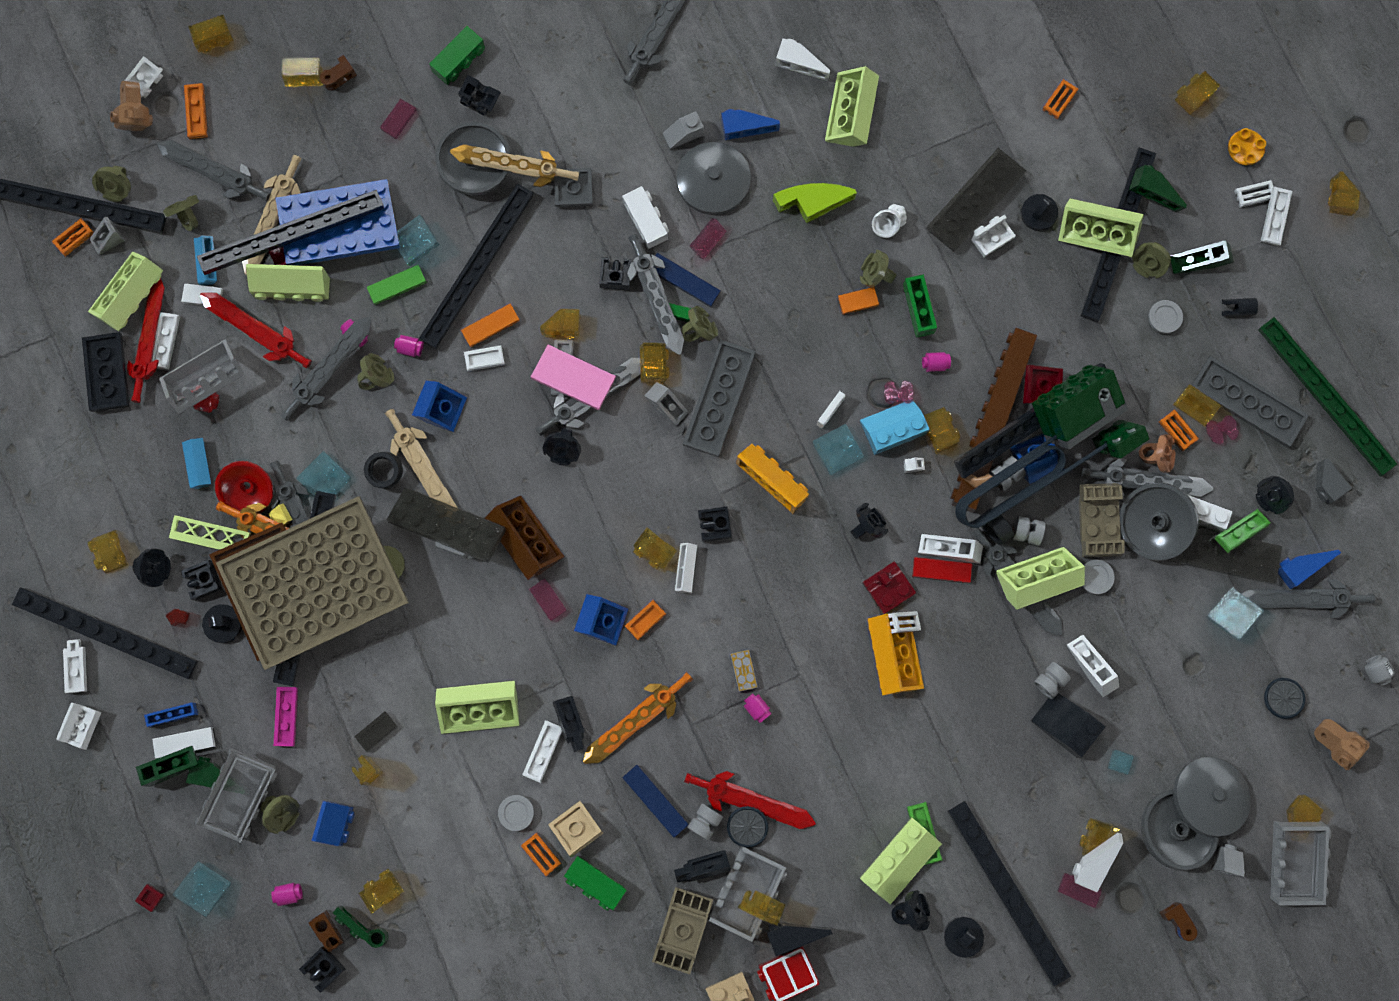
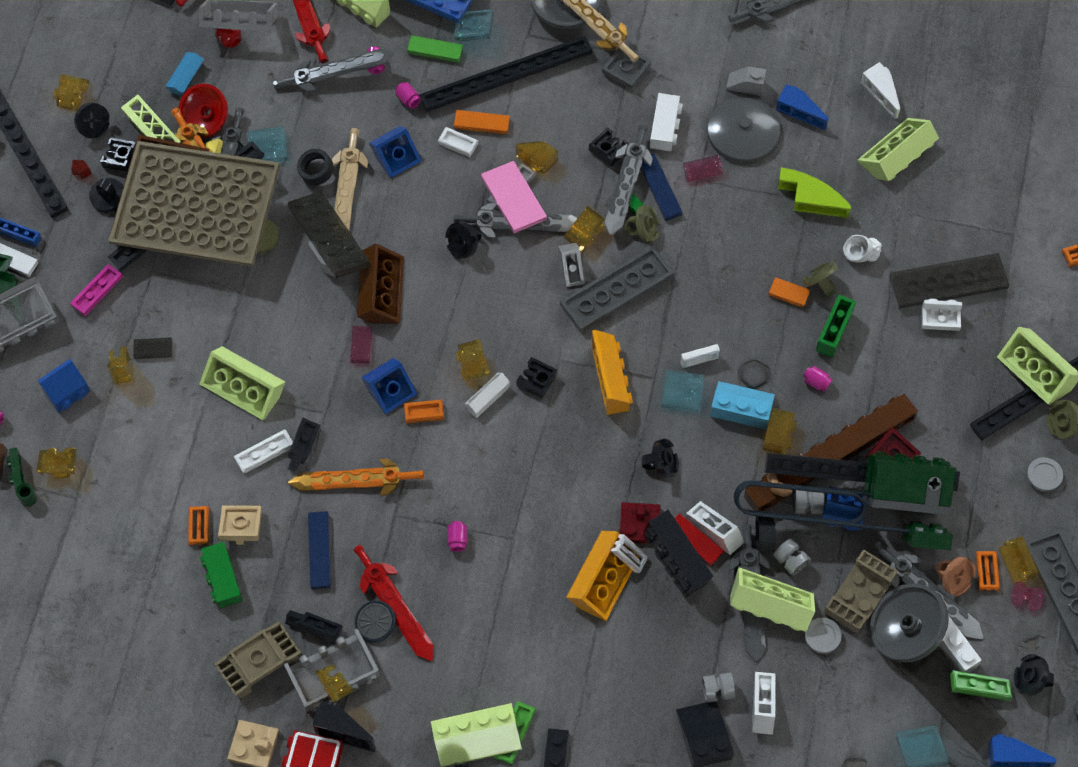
camera: 40 degrees right, 15 degrees down
(279, 813) = (33, 352): olive tile -> none
(375, 371) = (367, 93): olive tile -> none
(516, 812) = (205, 480): light grey piece -> none
(705, 822) = (344, 591): light grey wheel -> none
(743, 670) = (470, 502): tile -> none
(892, 394) = (761, 378): clear pink piece -> none
(914, 465) = (735, 443): white piece -> none
(944, 596) = (677, 553): none -> black brick
(1039, 212) = (996, 325): black tile -> none

